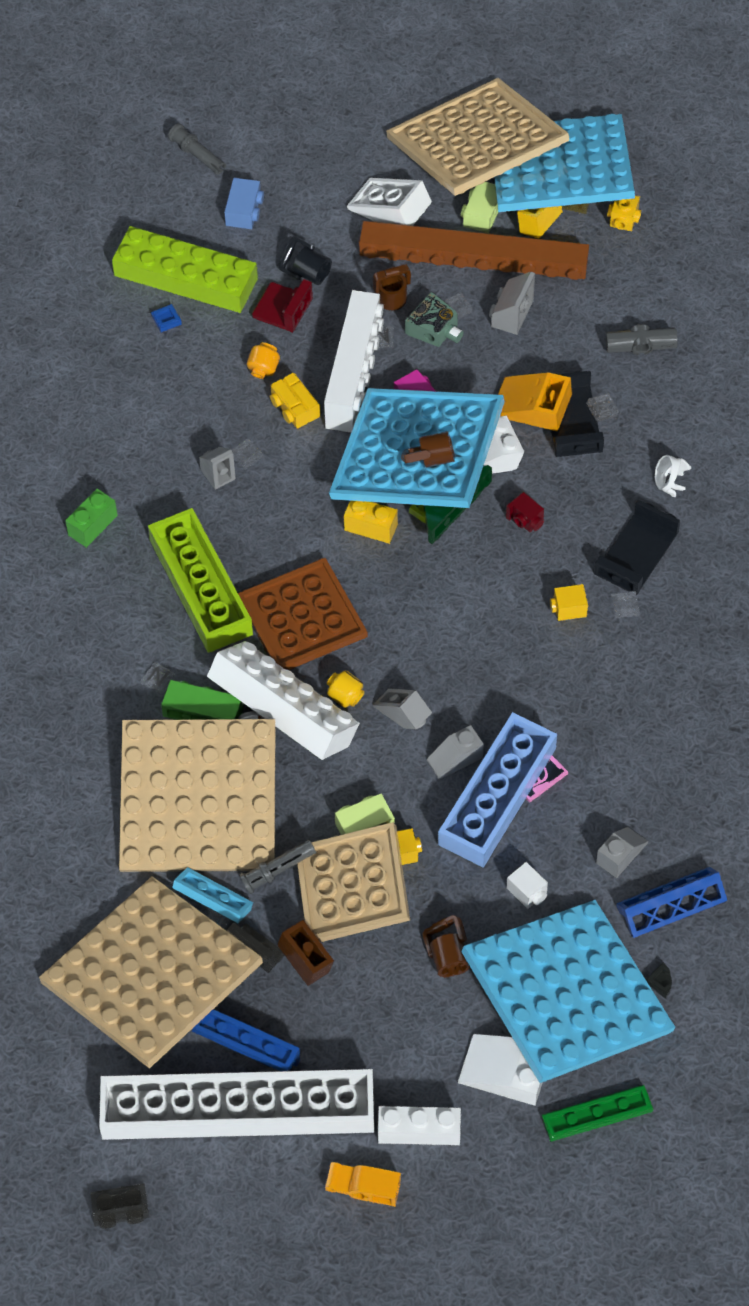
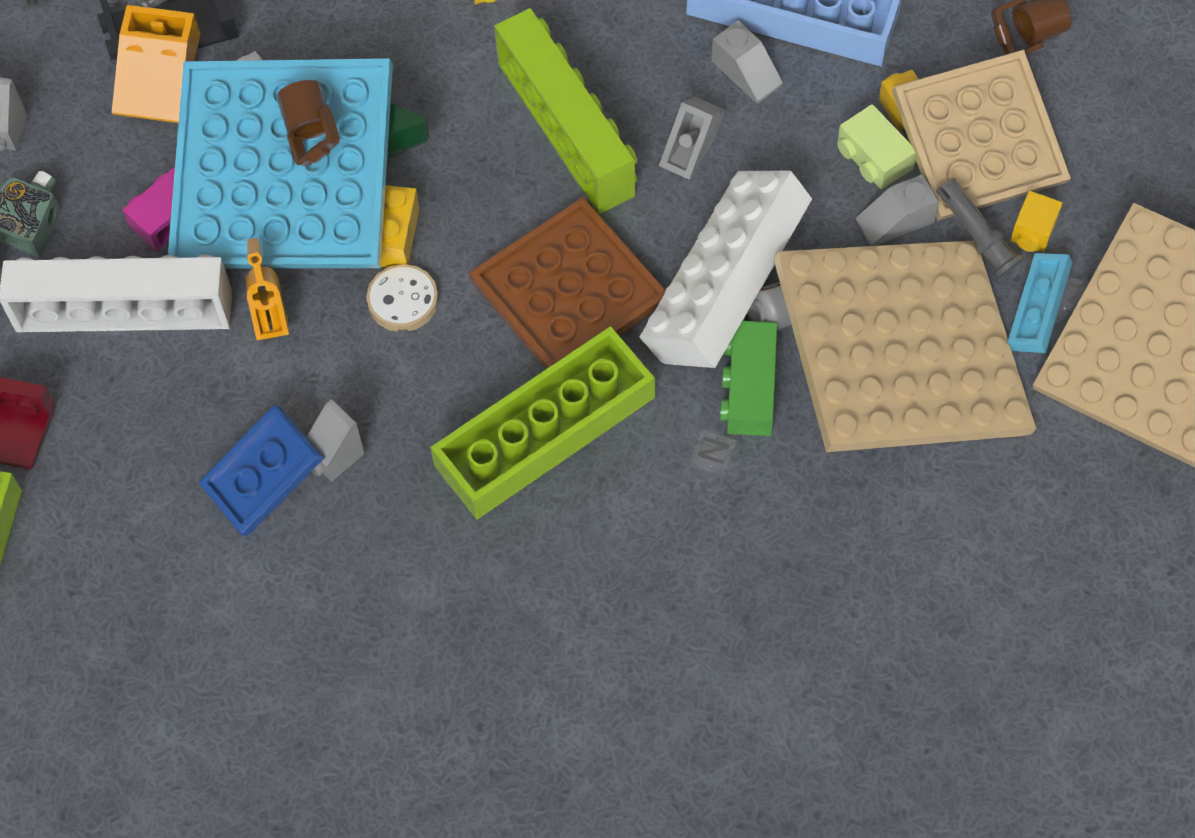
camera: 100 degrees left, 5 degrees up
(91, 517) = (458, 603): bright green brick -> none
(166, 318) = (45, 594): blue tile -> none
(210, 426) = (261, 470): none -> blue tile
(258, 943) = (1098, 233): clear smoke bracket -> none
(263, 360) = (121, 428): light orange head -> none
(276, 908) = (1036, 222): none -> yellow brick
(294, 400) = (193, 369): yellow brick -> none
(305, 952) = (1096, 168): reddish brown brick -> none
(307, 822) = (899, 211): none -> light grey slope
(320, 522) = (402, 297): none -> white tile
(330, 436) = (263, 300): none -> light orange piece
(345, 688) = (681, 205): yellow head -> none
(434, 626) = (566, 110): none -> lime brick
(525, 513) = (348, 41): dark red brick -> none

